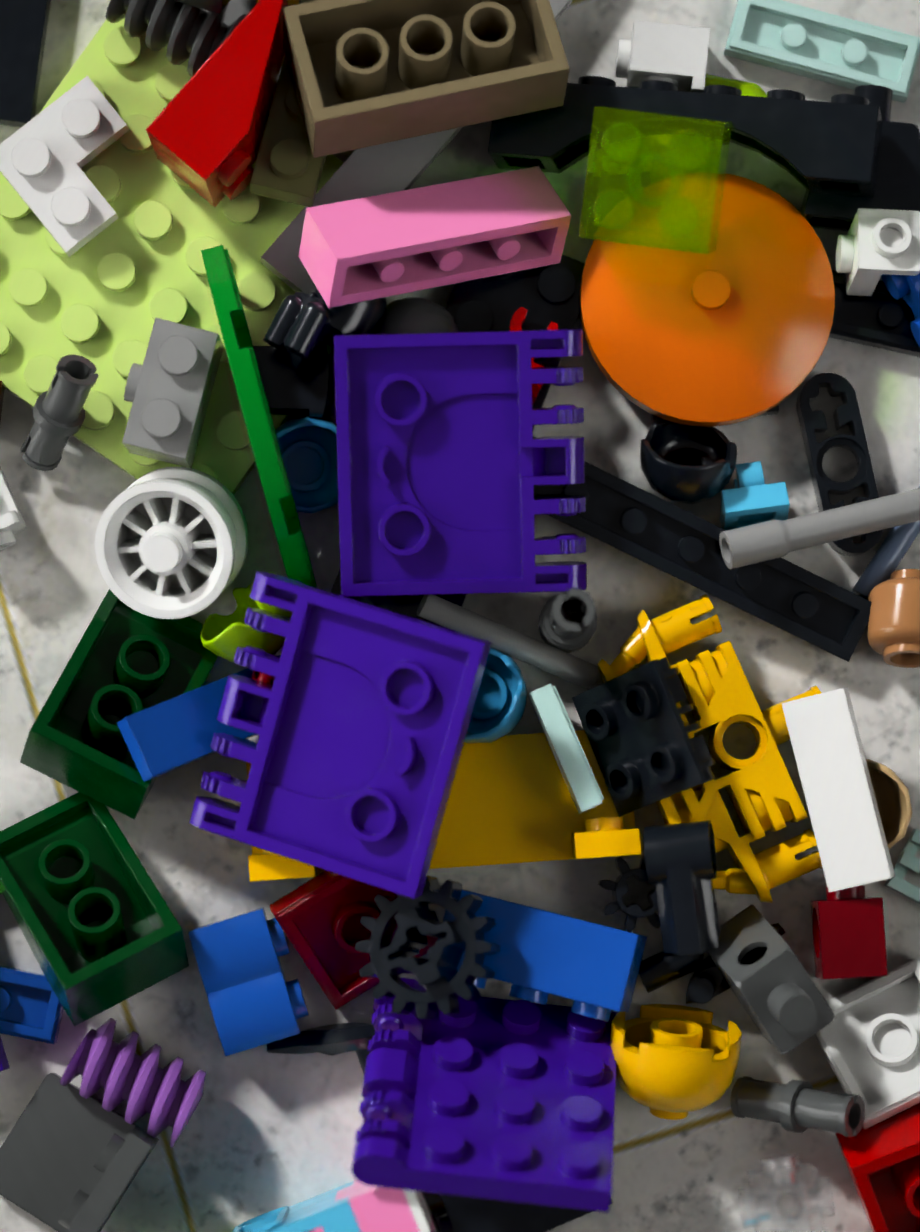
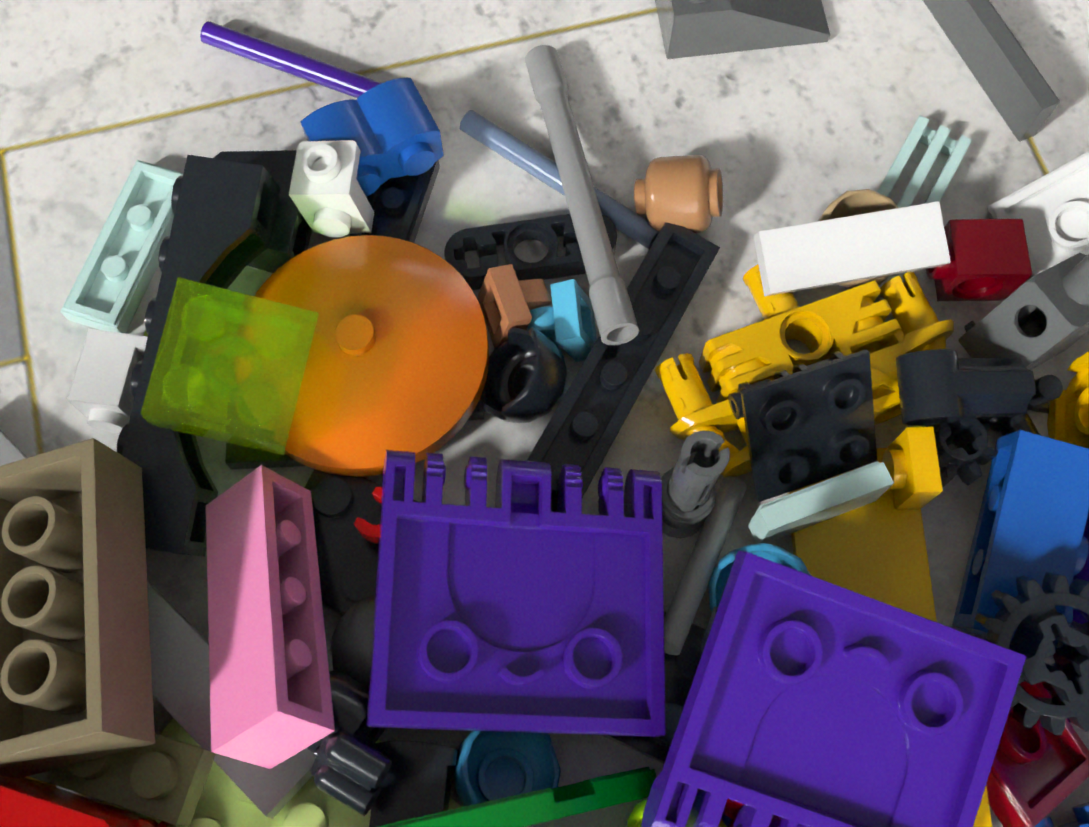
camera: 85 degrees left, 15 degrees down
(769, 443) = (509, 301): none -> nougat tile

